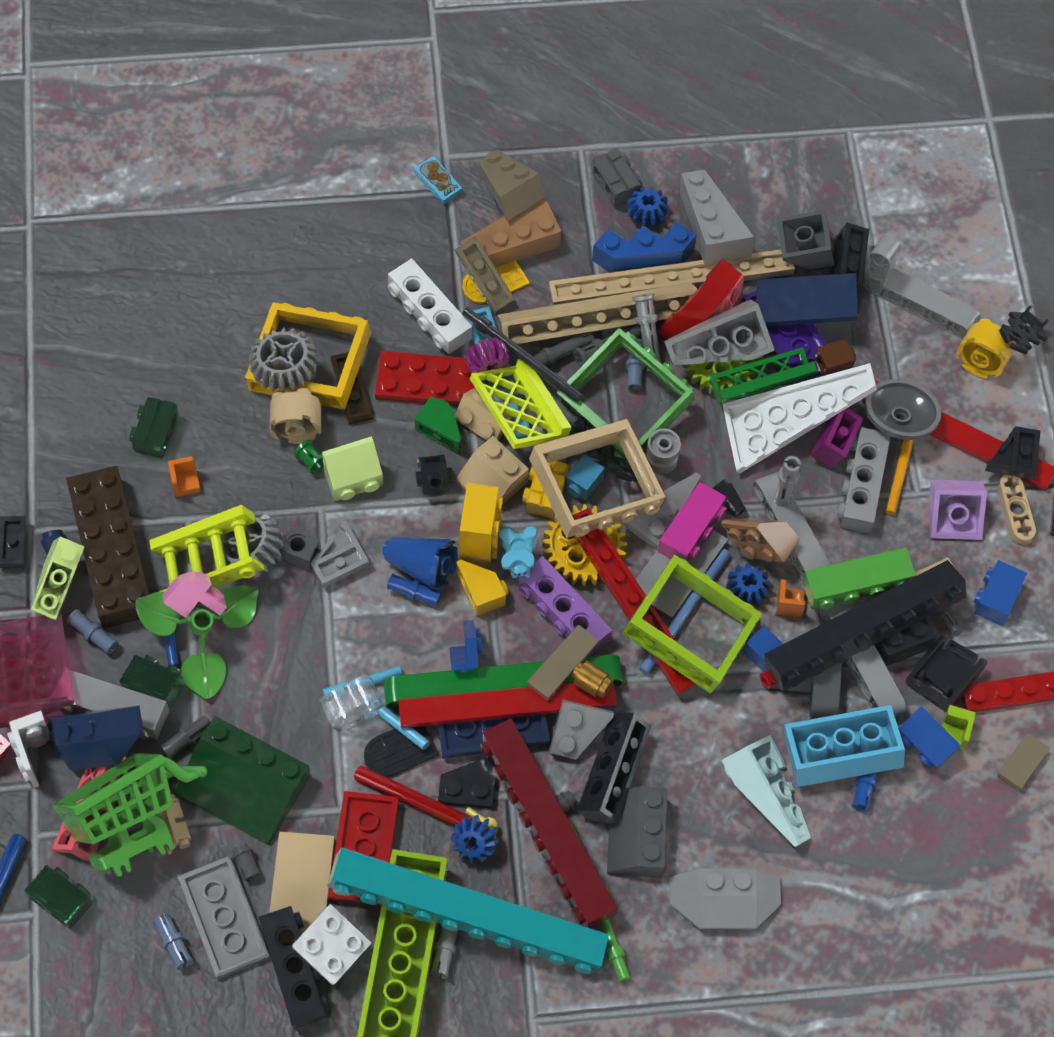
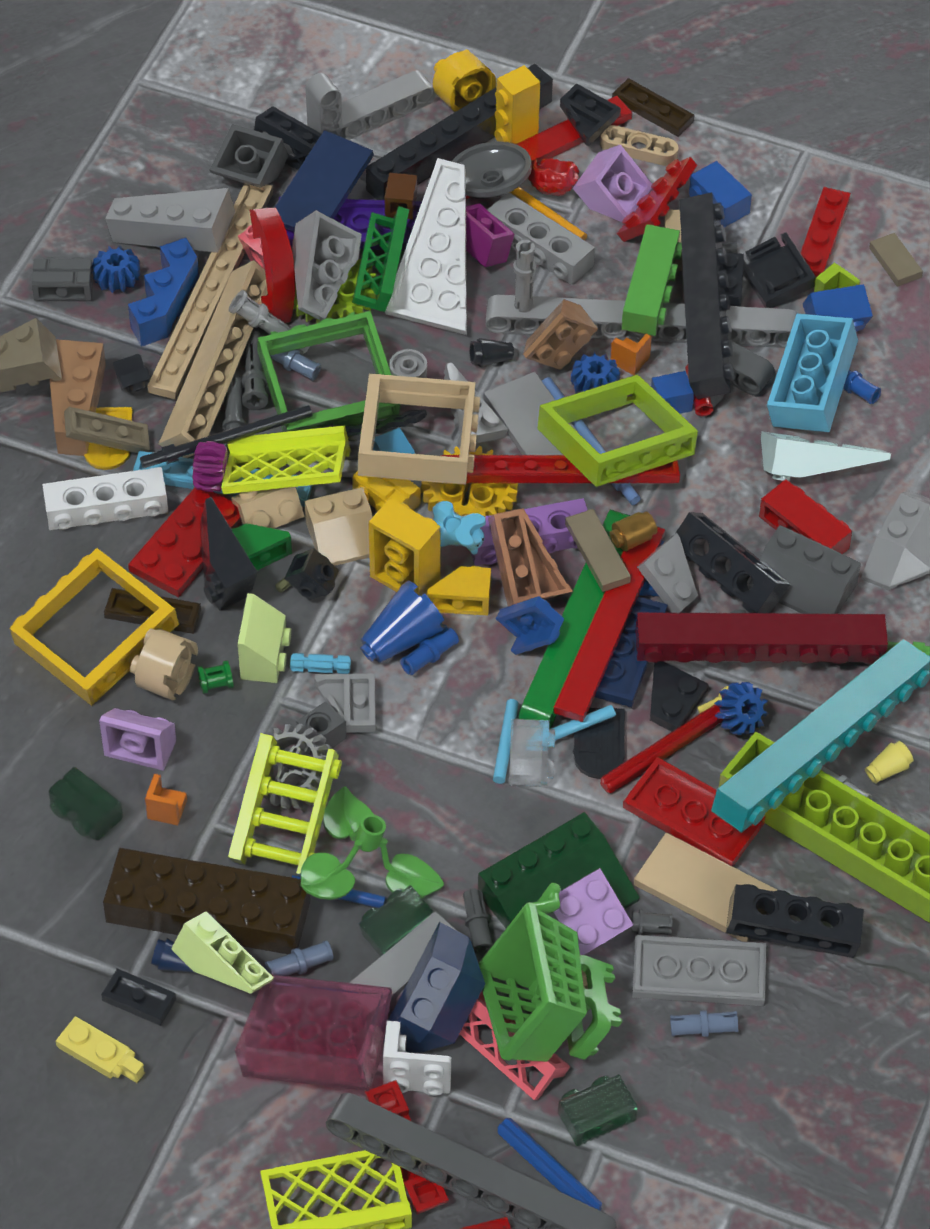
camera: 60 degrees left, 10 degrees down
(189, 589) = (328, 827): bright pink brick -> none
(217, 809) = (592, 911): none -> lavender brick
(227, 430) = (137, 738): none -> lavender slope
(283, 362) = (79, 632): light grey gear -> none
(331, 944) = (791, 869): white bracket -> none
(364, 521) = (320, 663): none -> medium azure axle
(398, 409) = (225, 564): none -> black slope
(490, 977) = (889, 762): none -> light yellow cone
(521, 615) = (523, 559): none -> nougat wedge
(554, 267) = (131, 373): none -> black bracket
(693, 523) = (506, 385): dark pink brick -> none
(693, 809) = (793, 509): none -> red brick
(935, 460) = (554, 176): none -> red hair
(940, 373) = (446, 139): none -> black brick
(941, 547) = (655, 203): none -> red wing
(974, 396) = (517, 106): none -> yellow brick
(1031, 334) = (464, 43): black piece -> none

